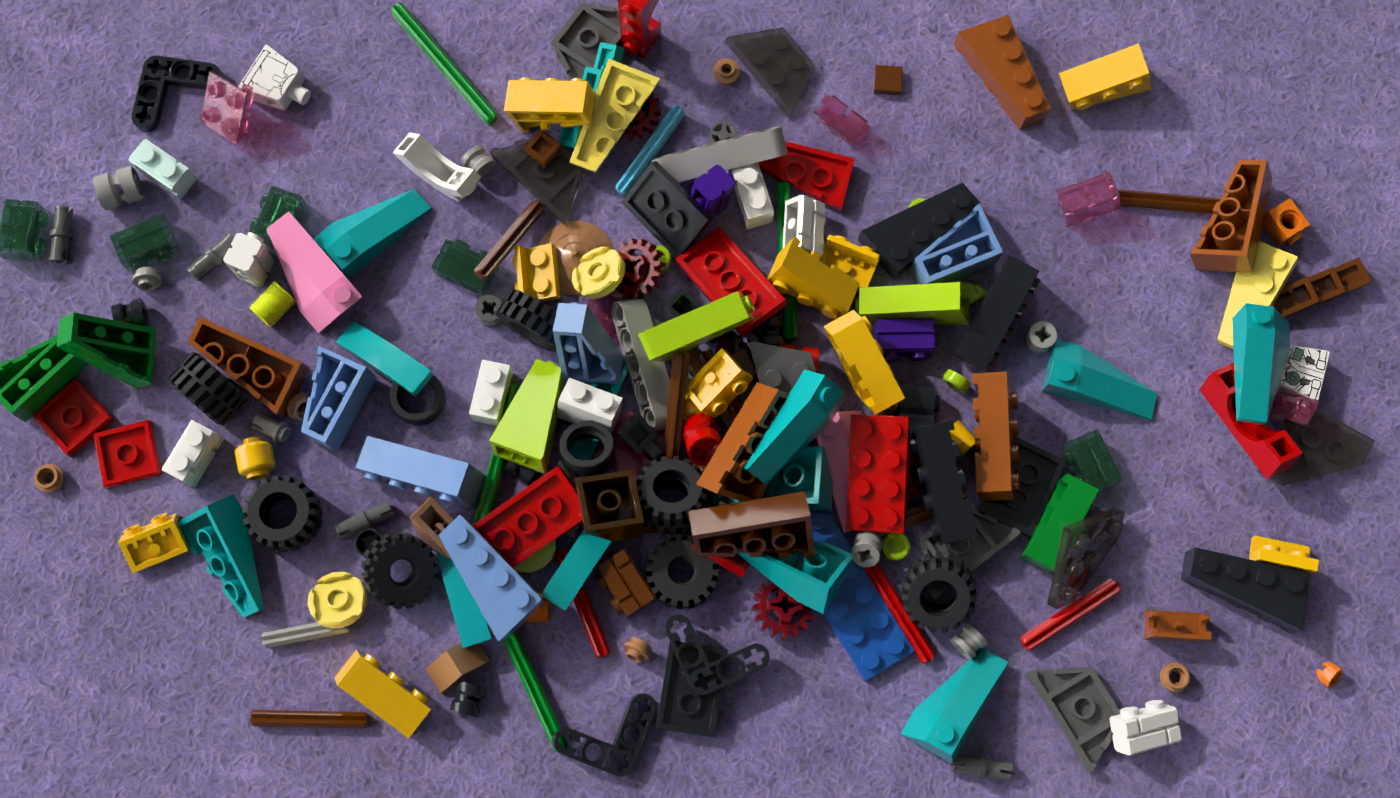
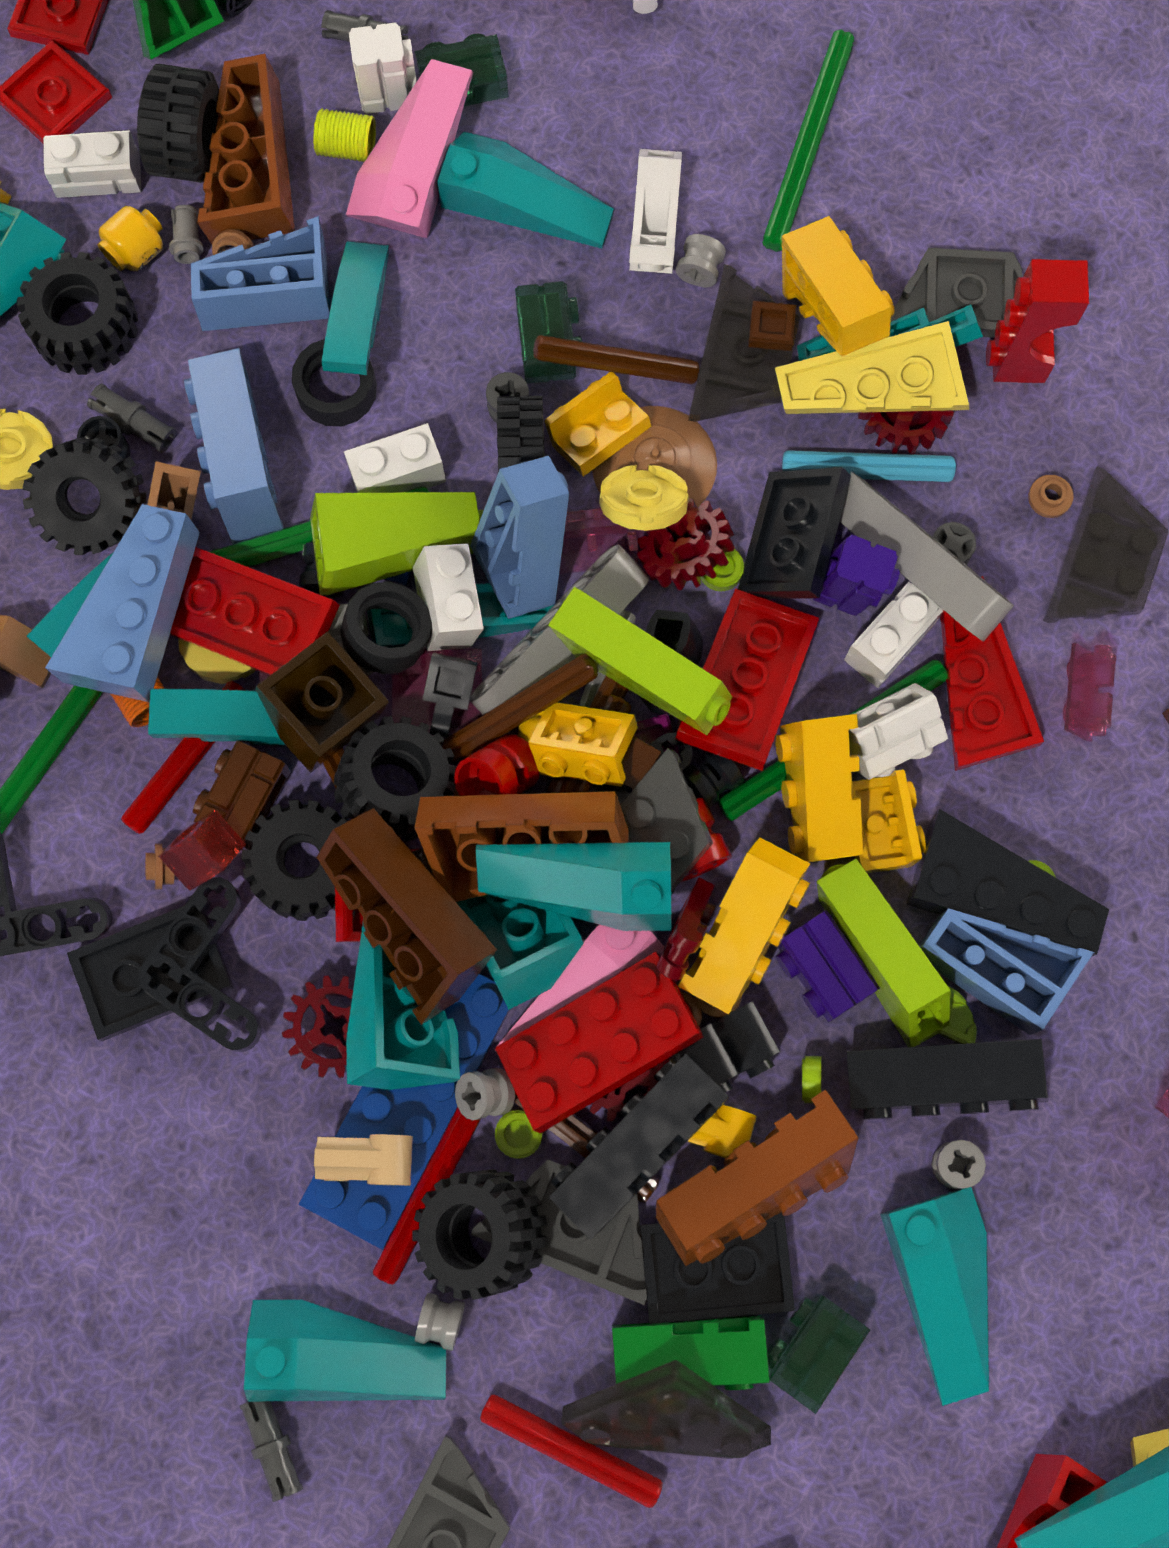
camera: 60 degrees right, 0 degrees up
(648, 619) = (202, 850): none -> clear red brick
(854, 394) = (687, 931): none -> dark red plate
(869, 623) = (375, 1159): none -> tan piece

